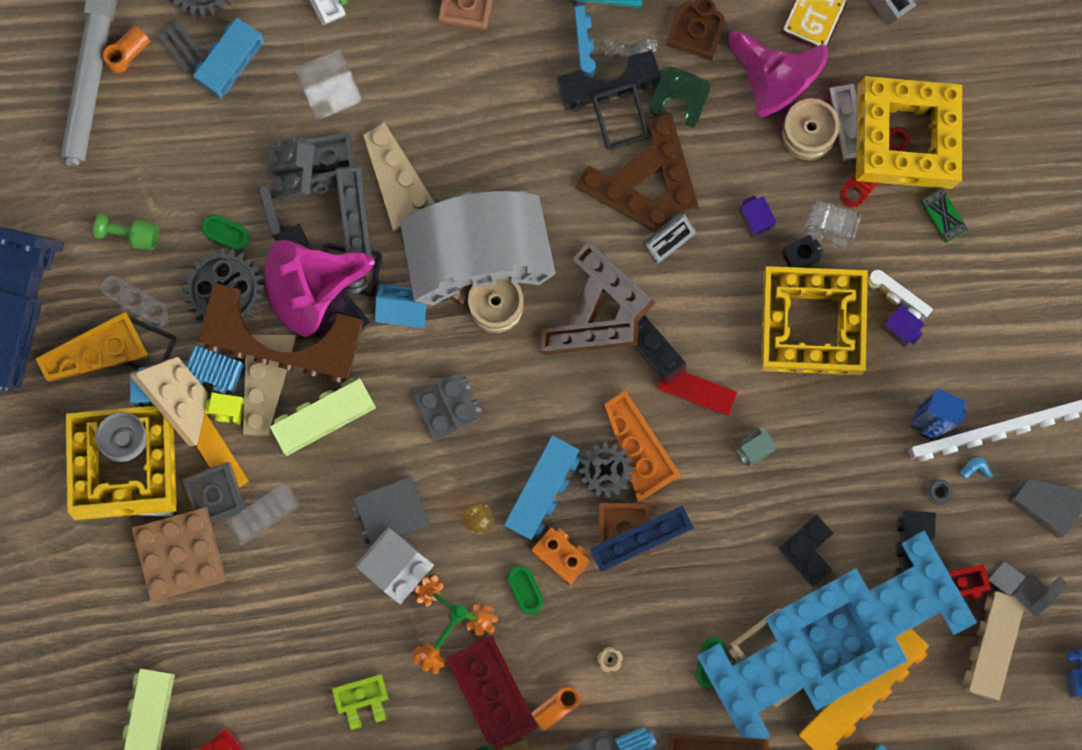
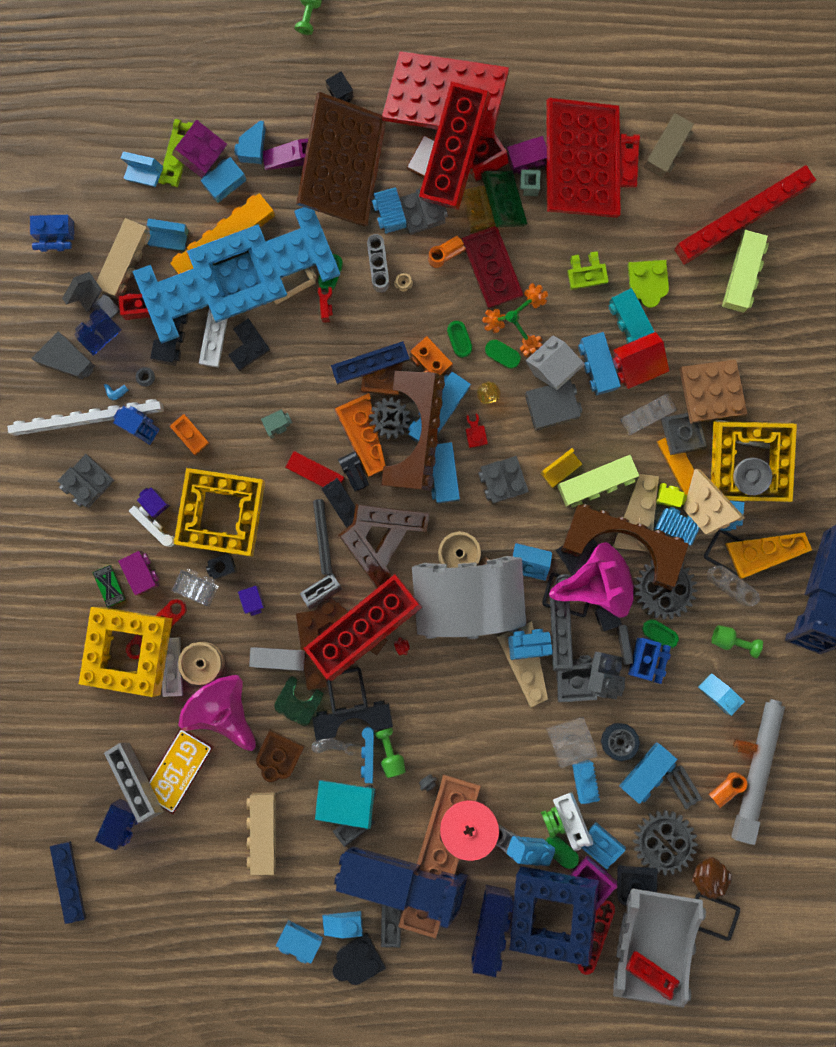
camera: 175 degrees left, 5 degrees up
(107, 104) = (745, 746): none -> clear orange plate
(142, 163) = (721, 694): none -> medium azure slope
(242, 195) = (645, 660): none -> blue brick
(256, 85) = (625, 750): none -> wheel
(276, 697) = (649, 281): none -> lime plate
(279, 581) = (641, 360): none -> red brick
(294, 639) = (630, 315): none -> teal brick
(305, 36) = (585, 782): none -> dark azure brick
(335, 574) = (599, 364): none -> dark azure brick
(373, 430) = (561, 468): none -> yellow panel
(392, 196) = (529, 645): none -> dark azure brick
(465, 575) = (502, 354): none -> green tile
(490, 463) = (475, 434): none -> red plate
(504, 16) = (428, 783): none -> dark grey plate
(528, 406) = (445, 475): none -> dark azure brick
(551, 34) = (392, 764): none -> bright green piece
(557, 179) = (401, 646): none -> red plate
(561, 502) = (417, 469): none -> reddish brown arch
(609, 191) = (362, 627): none -> red brick
(647, 667) = (378, 254): none -> light grey beam
(649, 402) = (352, 468): none -> black piece
(676, 308) = (322, 536): none -> dark grey axle
(710, 609) = (325, 308): none -> red plate
(714, 146) = (277, 658): none -> light grey beam
(856, 545) = (212, 342): none -> white plate
(869, 421) = (189, 434): none -> orange plate
(907, 234) = (139, 573): none -> magenta brick
(939, 688) = (167, 234): none -> dark azure panel
(996, 344) = (85, 481): none -> dark grey plate
(1011, 539) = (96, 331): none -> clear blue brick

